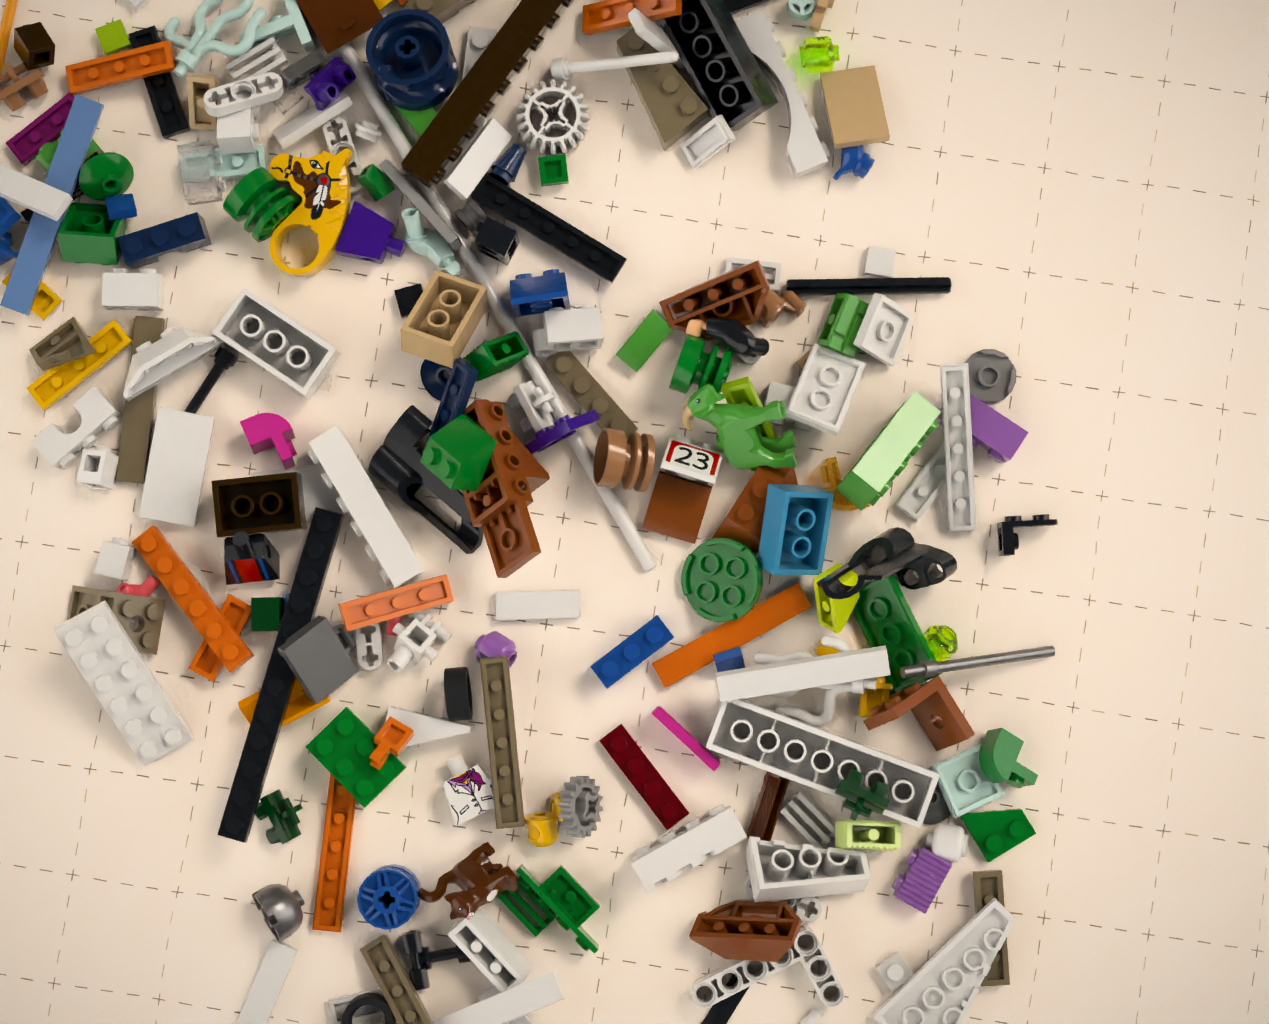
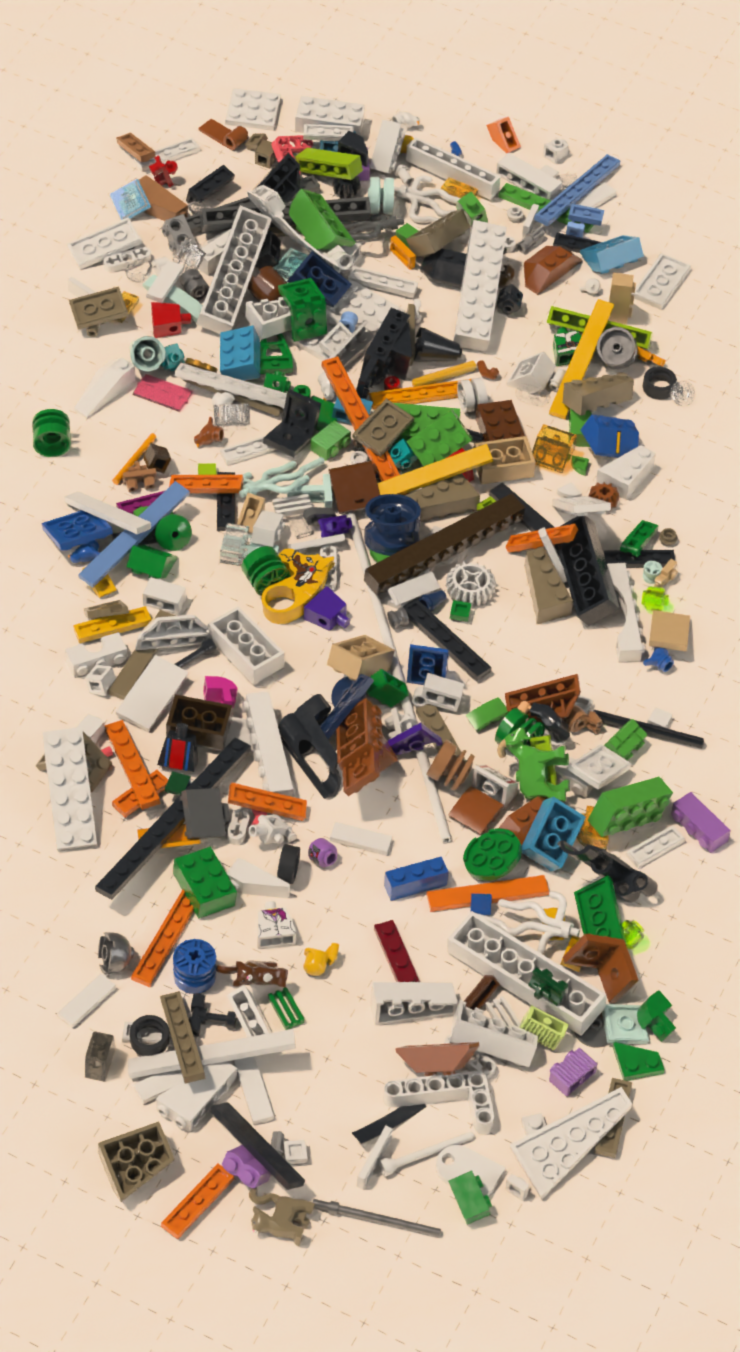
camera: 15 degrees right, 35 degrees down
(120, 206) = (174, 551): blue tile -> none
(179, 234) = (208, 573): dark blue arch -> none
(221, 94) = (279, 512): white beam -> none
(281, 815) = (140, 900): dark green hips -> none
(368, 130) = (348, 558): white plate -> none
(375, 182) = (343, 584): green piece -> none
(390, 739) = (233, 868): orange plate -> none
(419, 202) = (368, 601): light grey tile -> none
(428, 243) = (361, 623): light aqua arm -> none
(459, 453) = (343, 721): green slope -> none
(496, 240) = (410, 629): black brick -> none
(502, 742) = (308, 897): dark tan tile -> none
(563, 68) = (489, 561): white piece -> none
(566, 899) = (316, 1009): green bracket -> none
(580, 806) = (347, 951): light grey gear -> none
(686, 738) = (434, 939): dark pink tile -> none
(707, 141) = (566, 620): white tile -> none
(803, 673) = (530, 907): white tile -> none
(835, 612) = (568, 882): neon yellow slope -> none
(883, 329) = (649, 749): white plate -> none
(930, 668) = (618, 932): flat silver bar -> none
(948, 842) = (601, 1053): white head -> none
(958, 447) = (679, 825): white tile -> none
(991, 375) = (715, 798): light grey tile -> none
(1008, 540) = (706, 884): black bracket -> none

